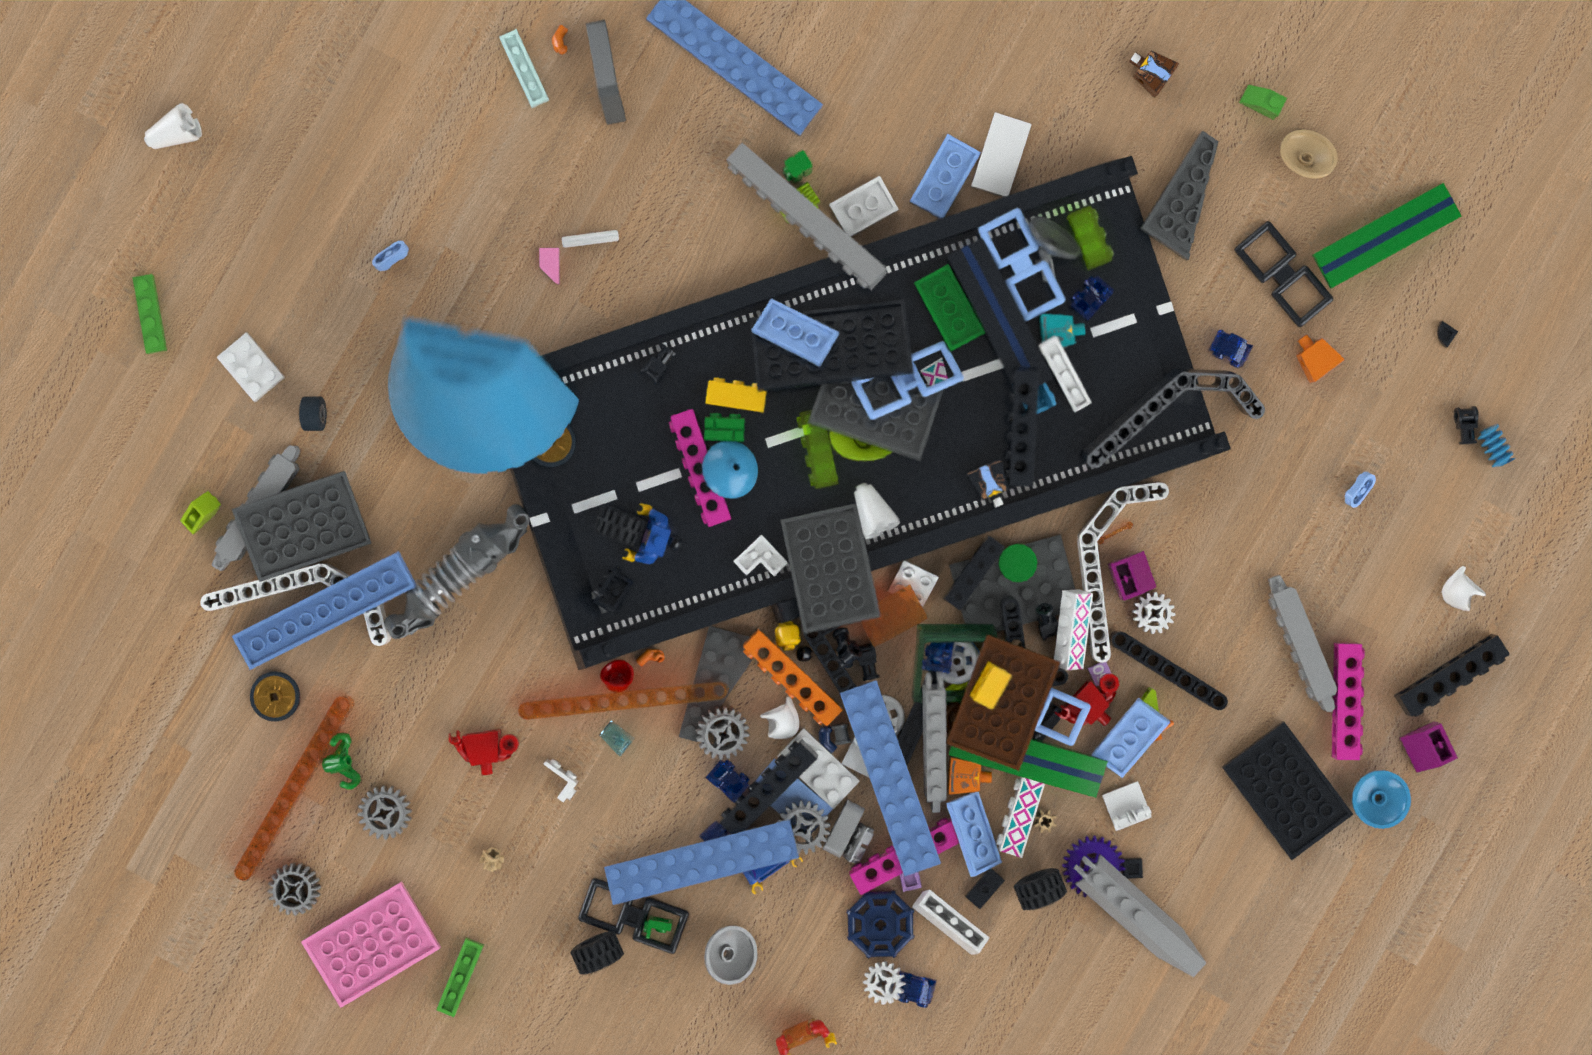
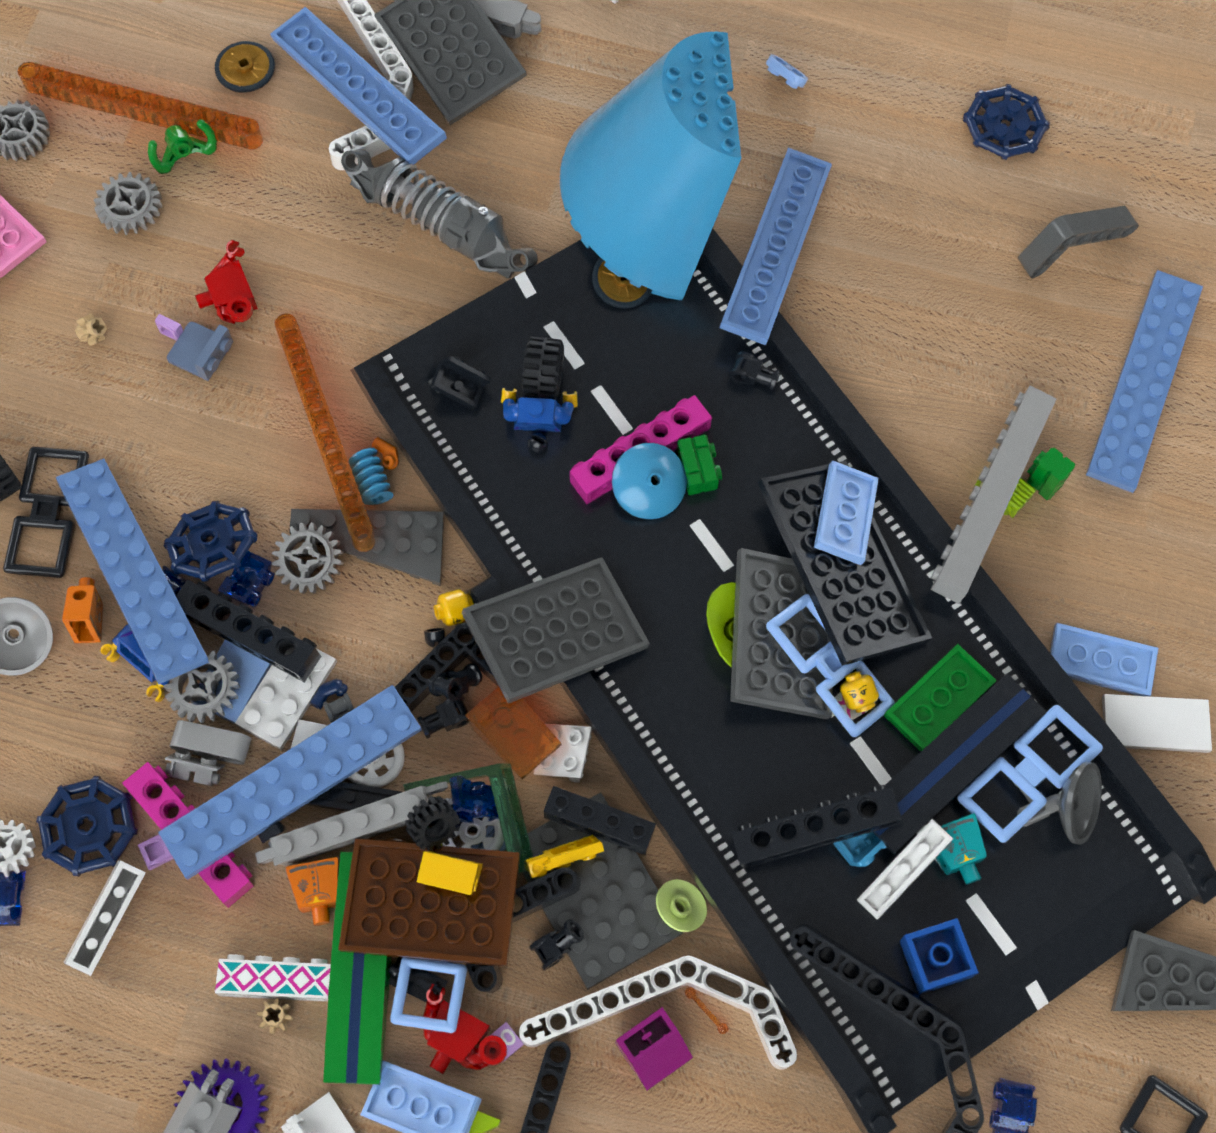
camera: 75 degrees right, 20 degrees down
(312, 413) = (582, 29): black wheel -> none
(473, 82) = (1010, 111): none -> dark blue plate
(505, 799) = (168, 327): none -> lavender tile
(524, 68) = (1047, 160): light aqua tile -> none
(528, 779) = (200, 349): none -> sand blue bracket
(550, 263) = (834, 235): bright pink tile -> none
(554, 314) = (775, 247): none -> medium blue plate
(557, 40) = (1095, 185): orange arm -> none
(570, 777) = (205, 398): white bracket -> none
(591, 238) = (878, 271): white axle -> none
(616, 737) = (272, 438): clear light blue slope -> none
(617, 675) = (353, 416): red helmet -> none
(659, 924) = (39, 540): green bracket -> none
(669, 674) = (369, 477): none -> dark azure piece
(698, 793) = (203, 524): none -> dark blue plate
(730, 901) = (83, 612): none -> orange torso
(735, 395) = (743, 467): yellow brick -> none
(761, 552) = (552, 543): white plate -> none
(782, 720) = (340, 631): white piece -> none
(819, 452) = (697, 583): clear neon green brick -> none
(823, 716) = (424, 565): orange brick -> none
(863, 207) = (1028, 568): white plate -> none
(873, 512) = (643, 668): white cone -> none
(921, 794) = (272, 831): none -> black tile
(931, 365) = (859, 692): none -> yellow head
(954, 689) = (438, 833): none -> black tyre
(974, 833) = (237, 918): light blue tile -> none
(984, 888) = (162, 957): black plate -> none
(989, 482) = (728, 808): torso -> none
(991, 602) = (563, 855): none -> yellow hinge
(1017, 563) = (628, 880): green tile -> none
(1040, 889) = (173, 1030): black tyre -> none
(1043, 523) = (687, 899): none -> yellowish green dish
(1073, 629) = (555, 979): white brick -> none
(1090, 237) = (1098, 857): clear neon green brick -> none
(1091, 297) = (1019, 880): clear blue cylinder -> none
(1129, 370) = (938, 956): none -> blue brick
(1160, 607) = (624, 1106): white gear -> none

